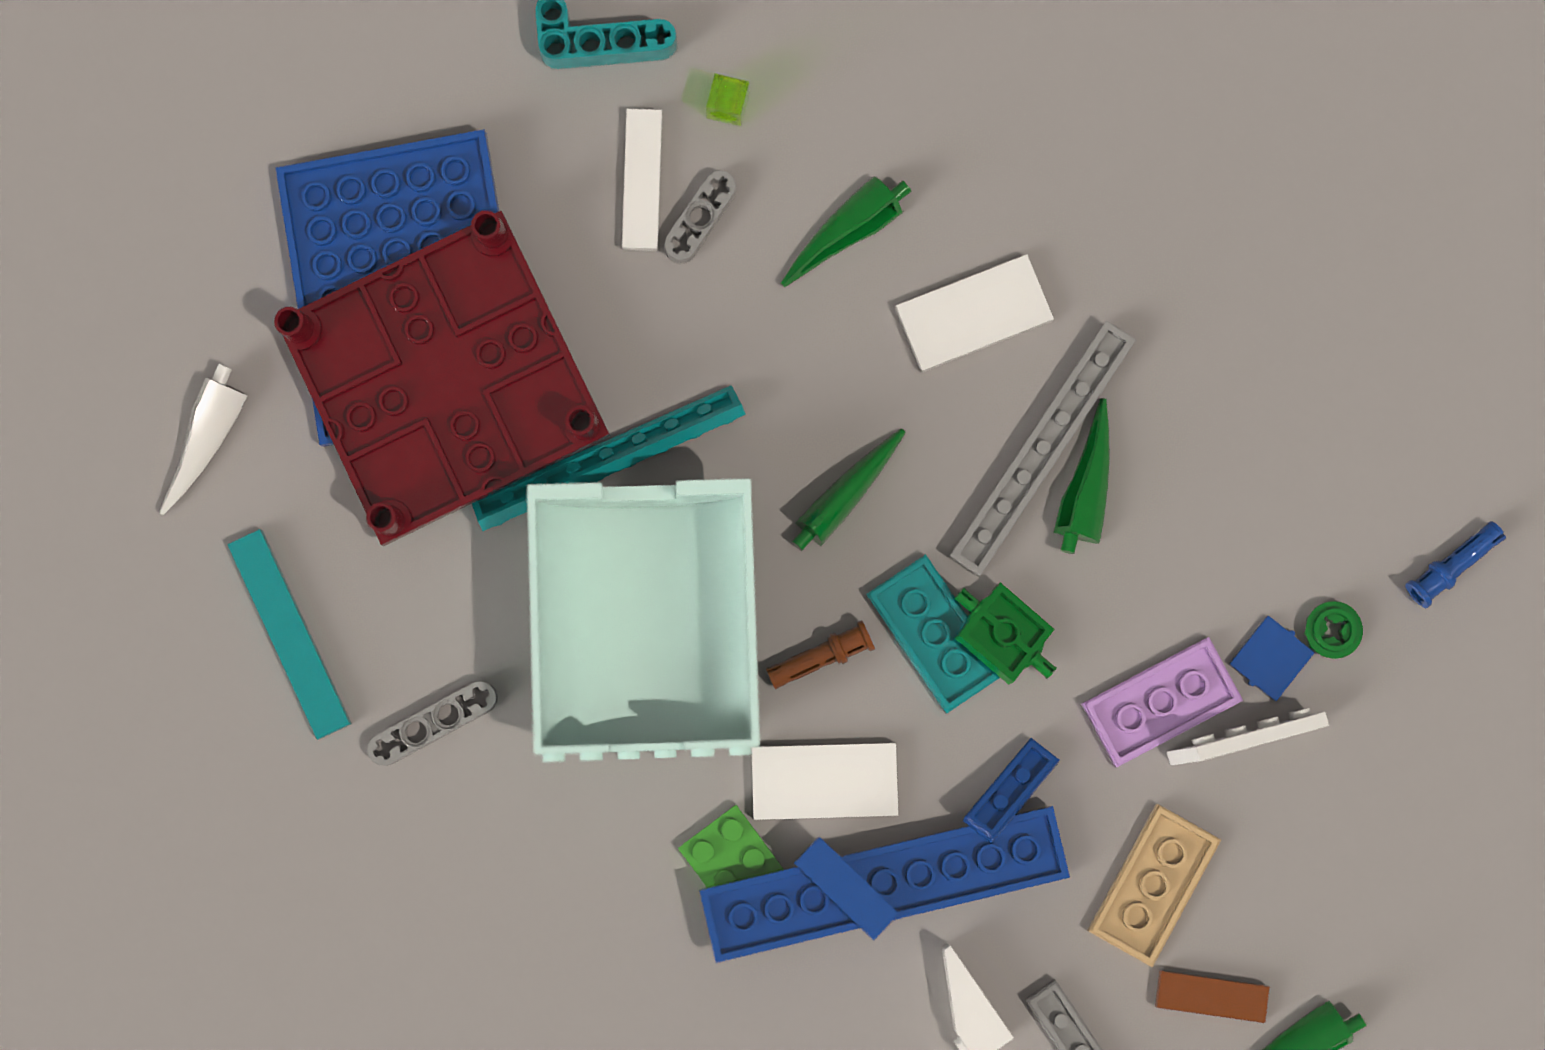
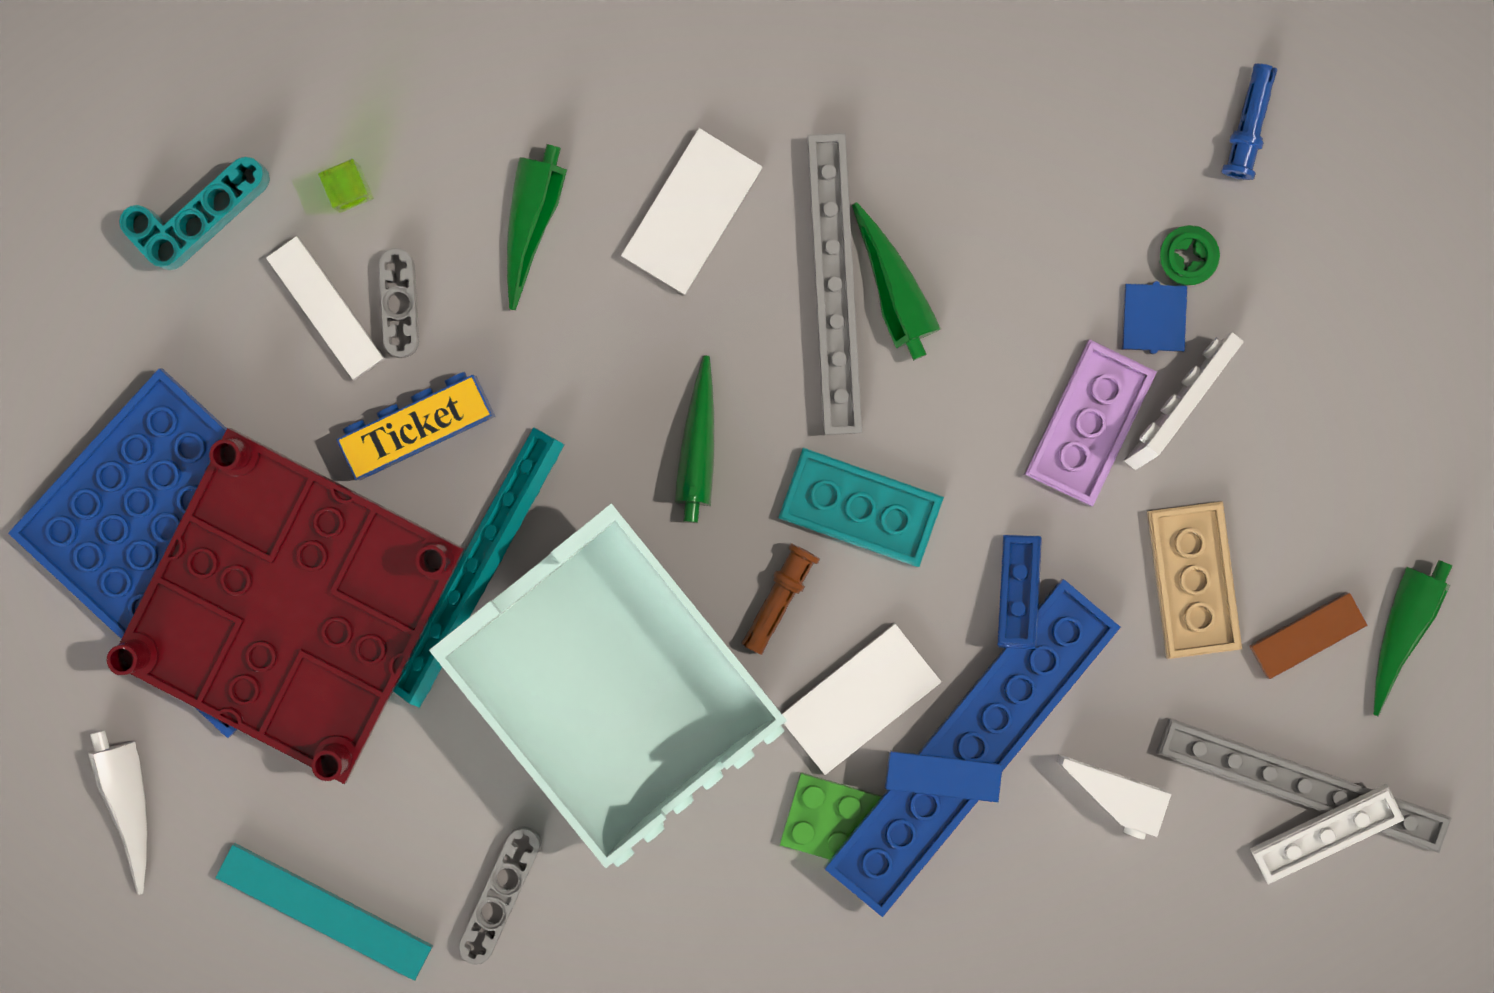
camera: 30 degrees left, 5 degrees up
(642, 317) = (416, 426): none -> yellow brick
(1004, 633) = (918, 465): green plate -> none

